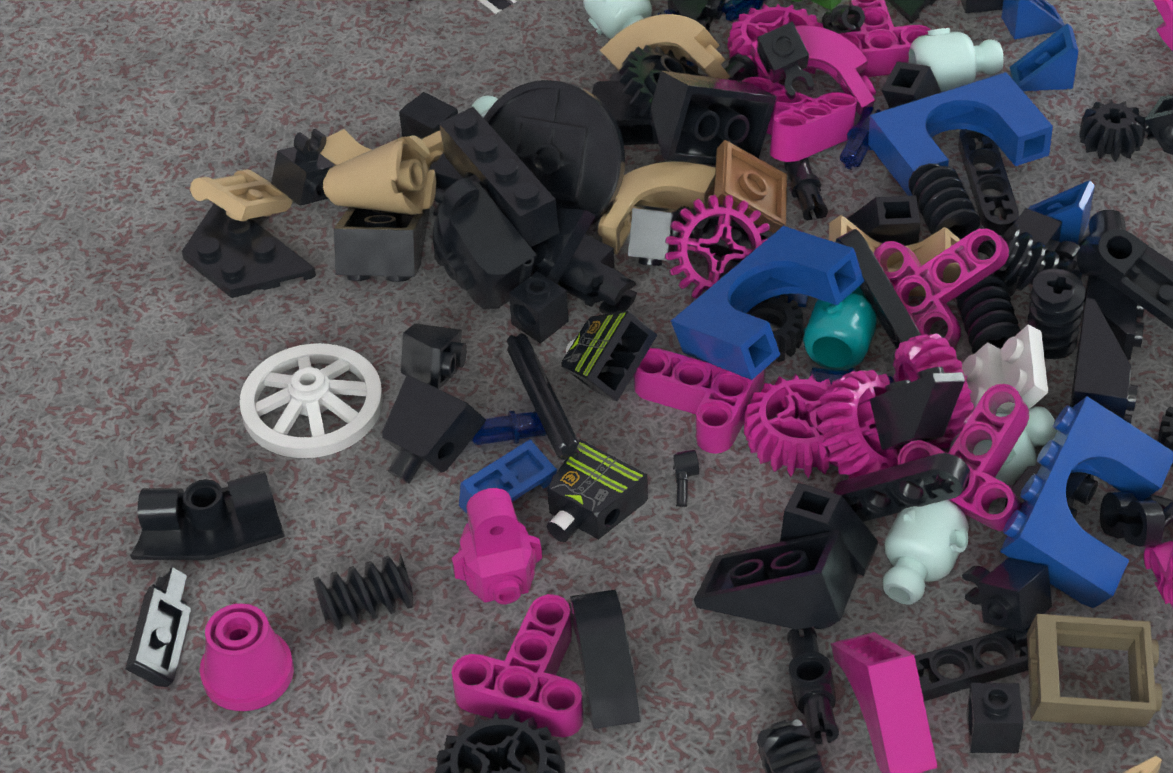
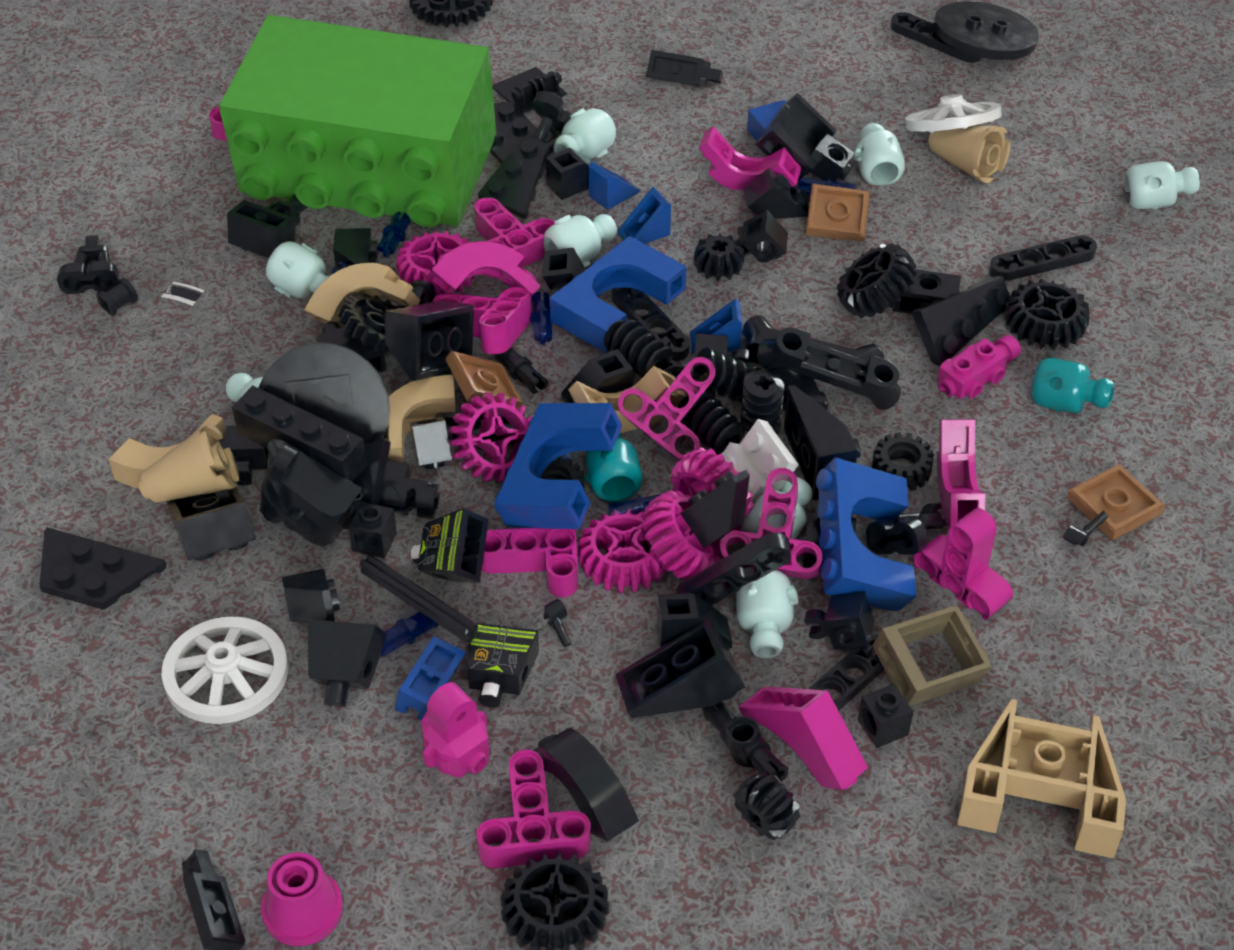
camera: 30 degrees left, 0 degrees up
(206, 519) = (222, 792): black panel -> none
(242, 195) = (69, 519): tan plate -> none
(302, 169) = (112, 483): black brick -> none
(364, 592) = (364, 805): black piece -> none
(423, 115) = (191, 408): black brick -> none
(785, 57) = (464, 271): black brick -> none
(840, 14) = (481, 230): black pin -> none
(880, 291) = (640, 435): black beam -> none

